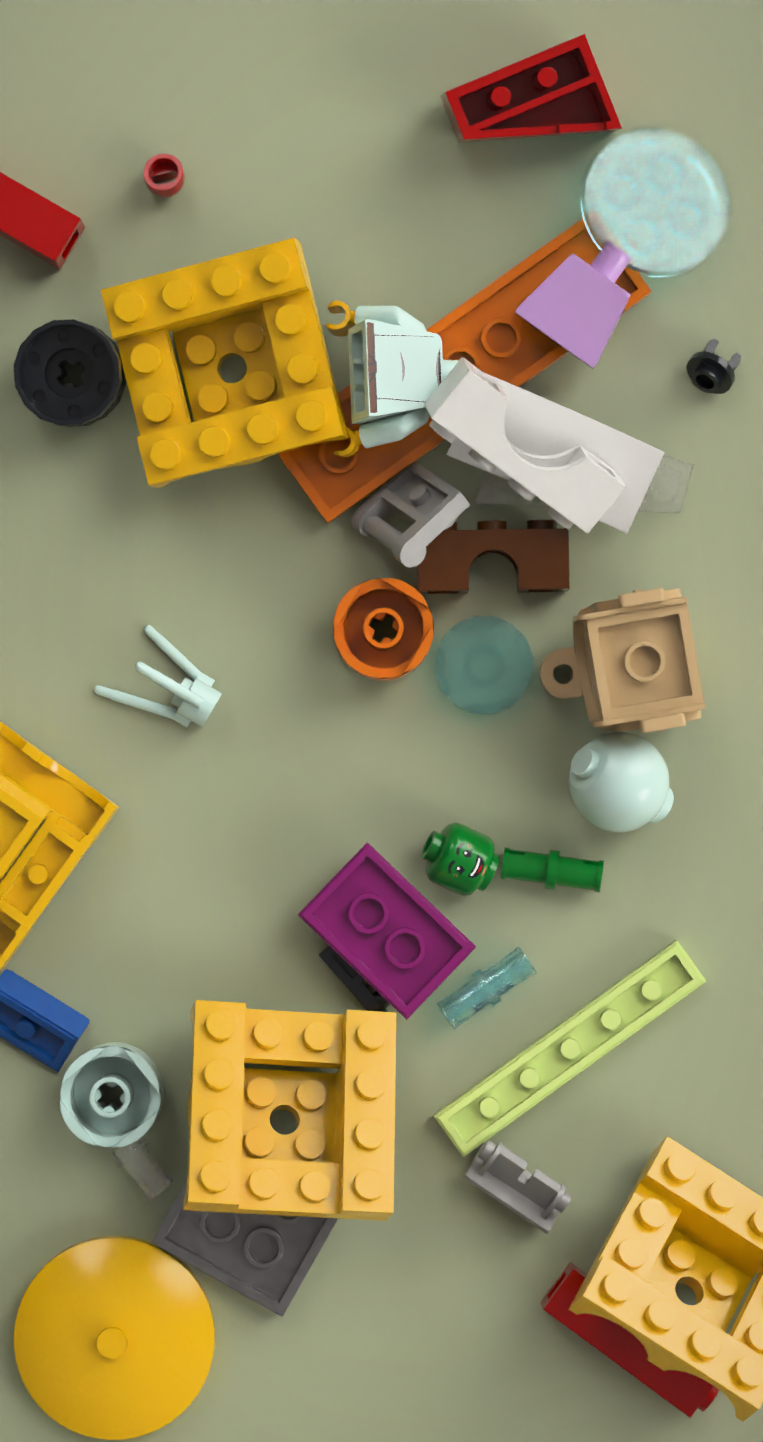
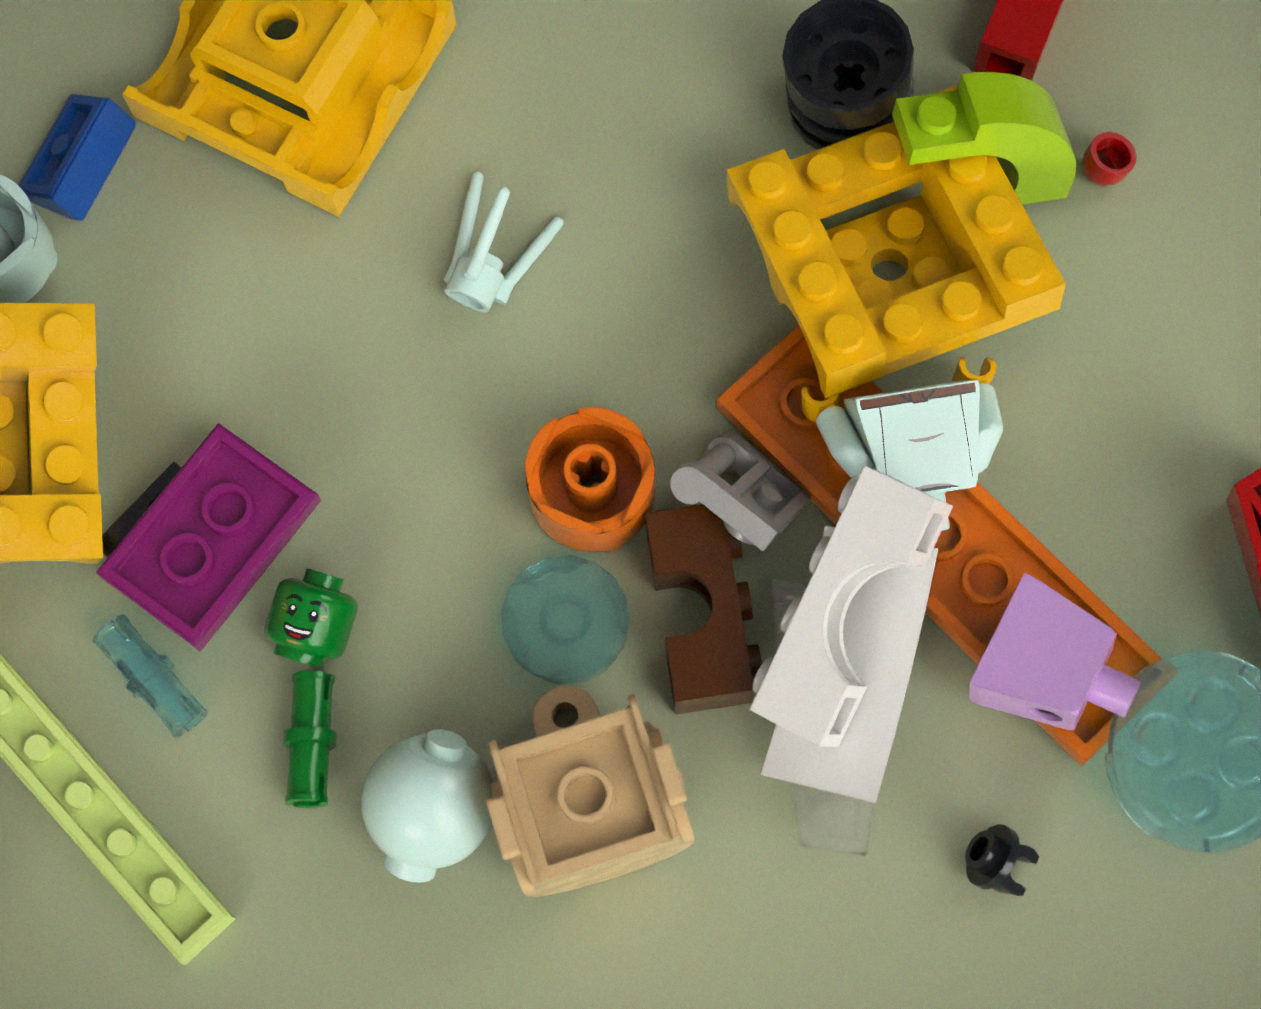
camera: 90 degrees right, 15 degrees down
(145, 261) = (996, 118): none -> lime arch

